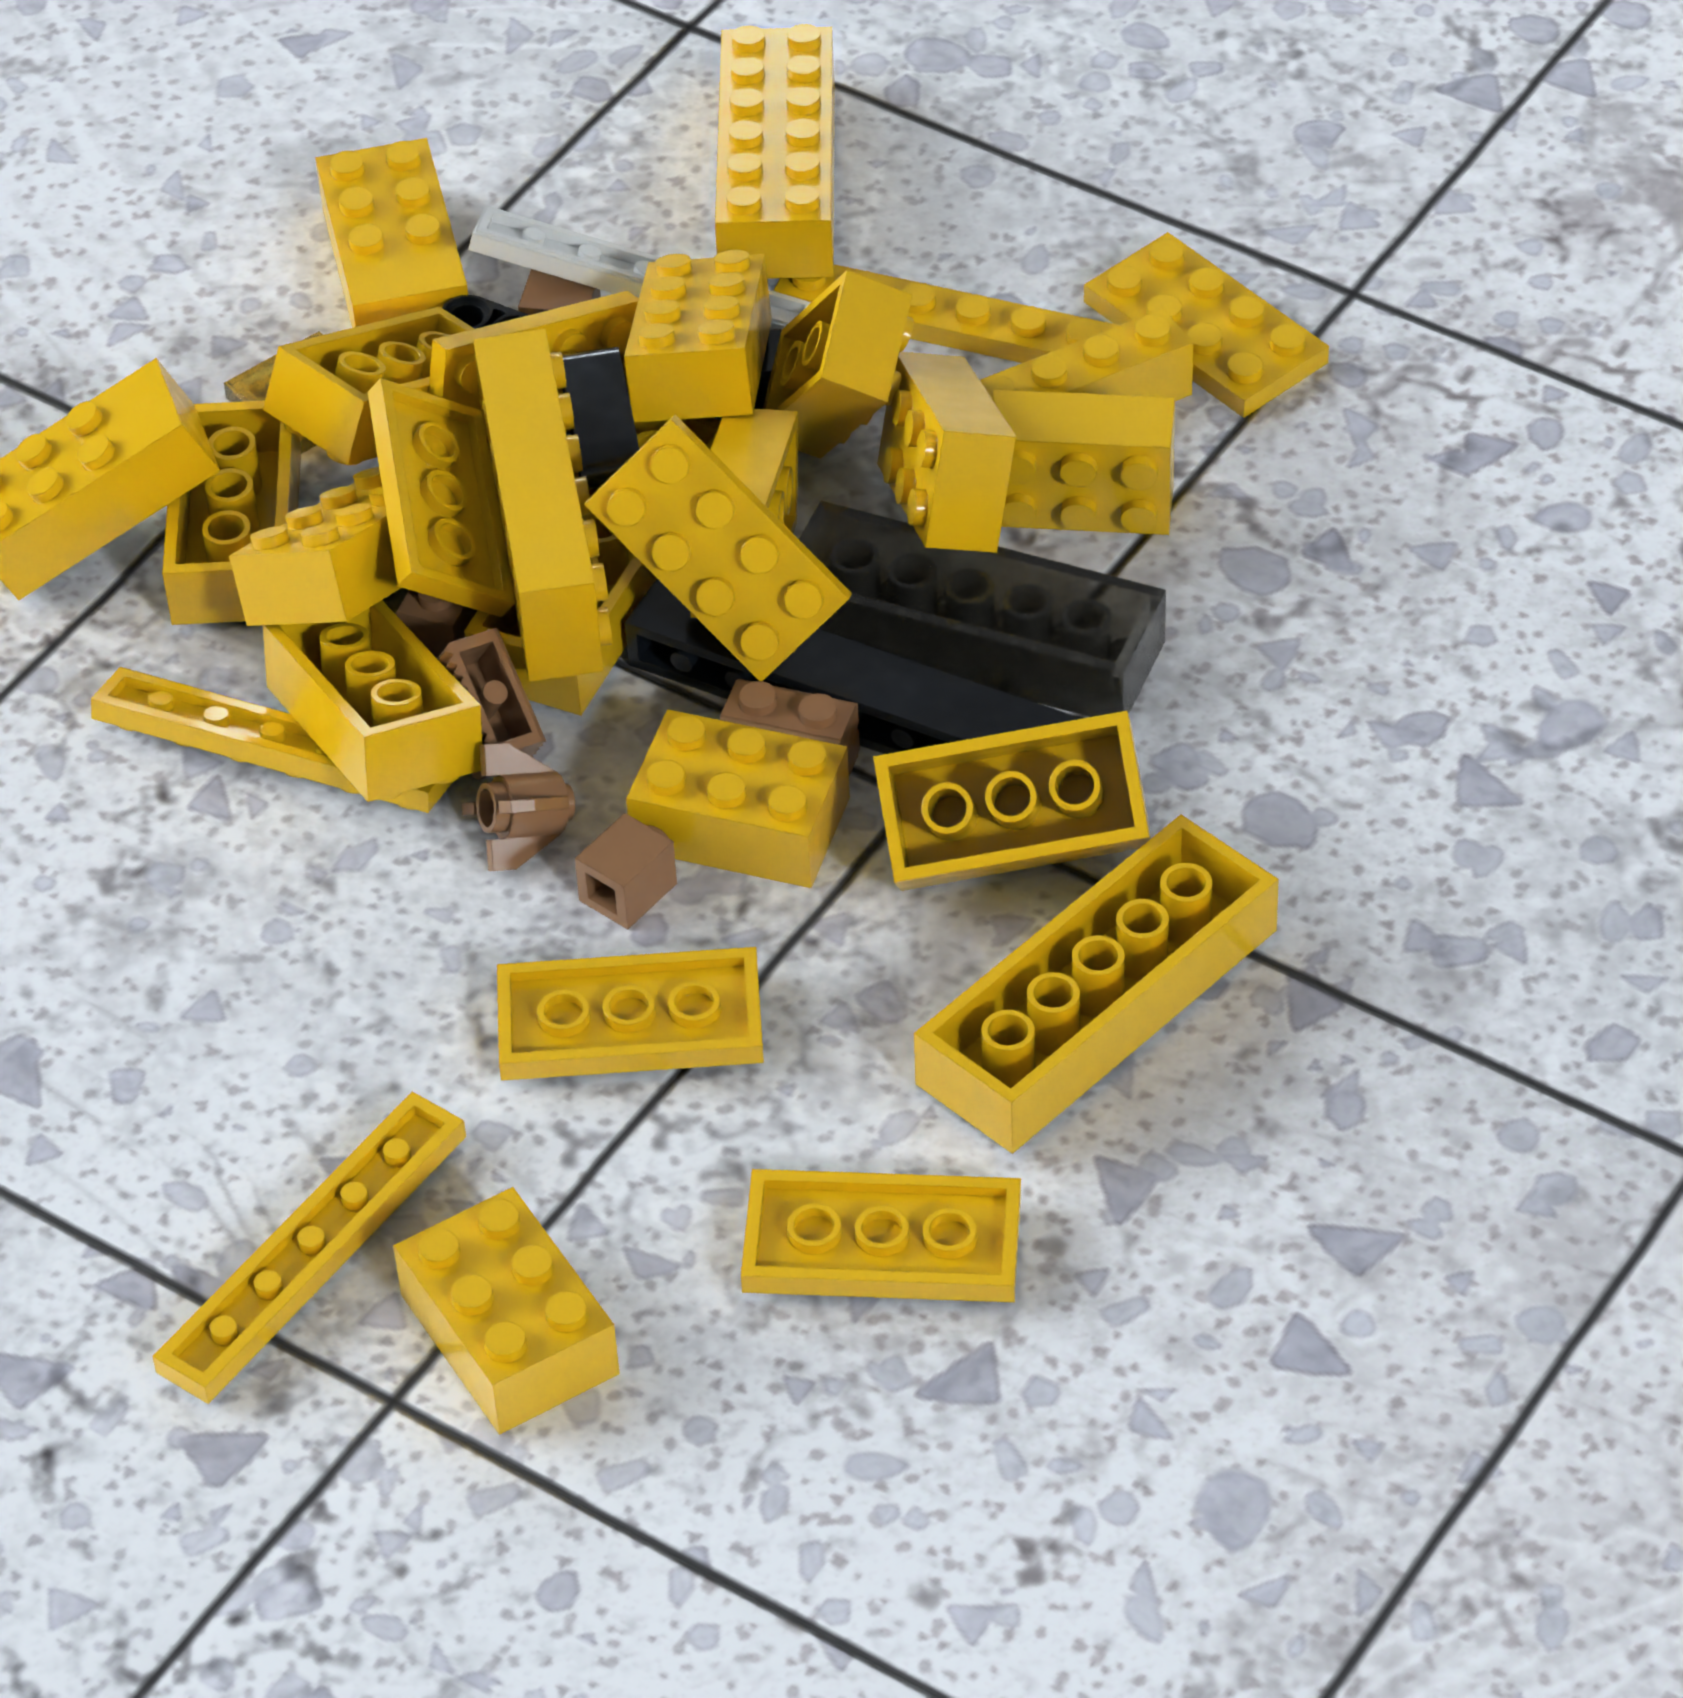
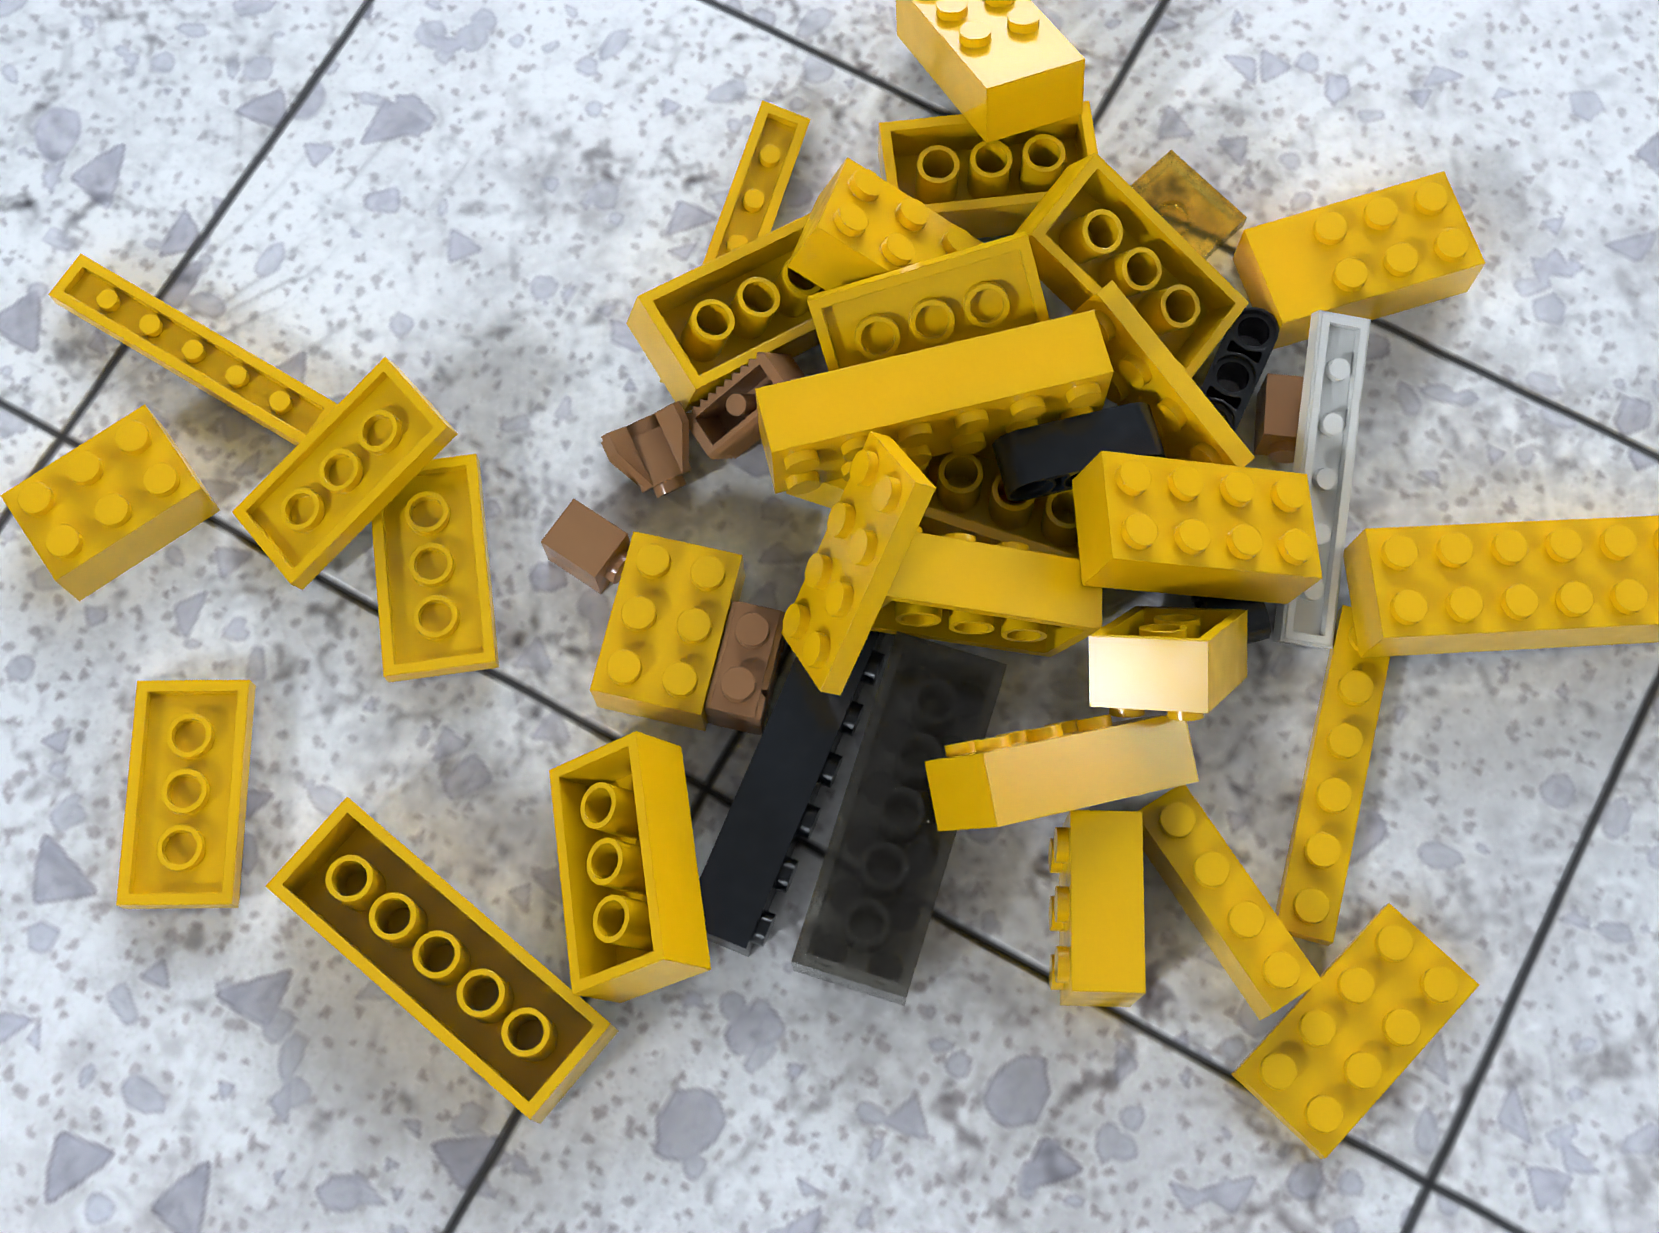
camera: 85 degrees right, 25 degrees up
(509, 1069) = (344, 473): none -> yellow plate

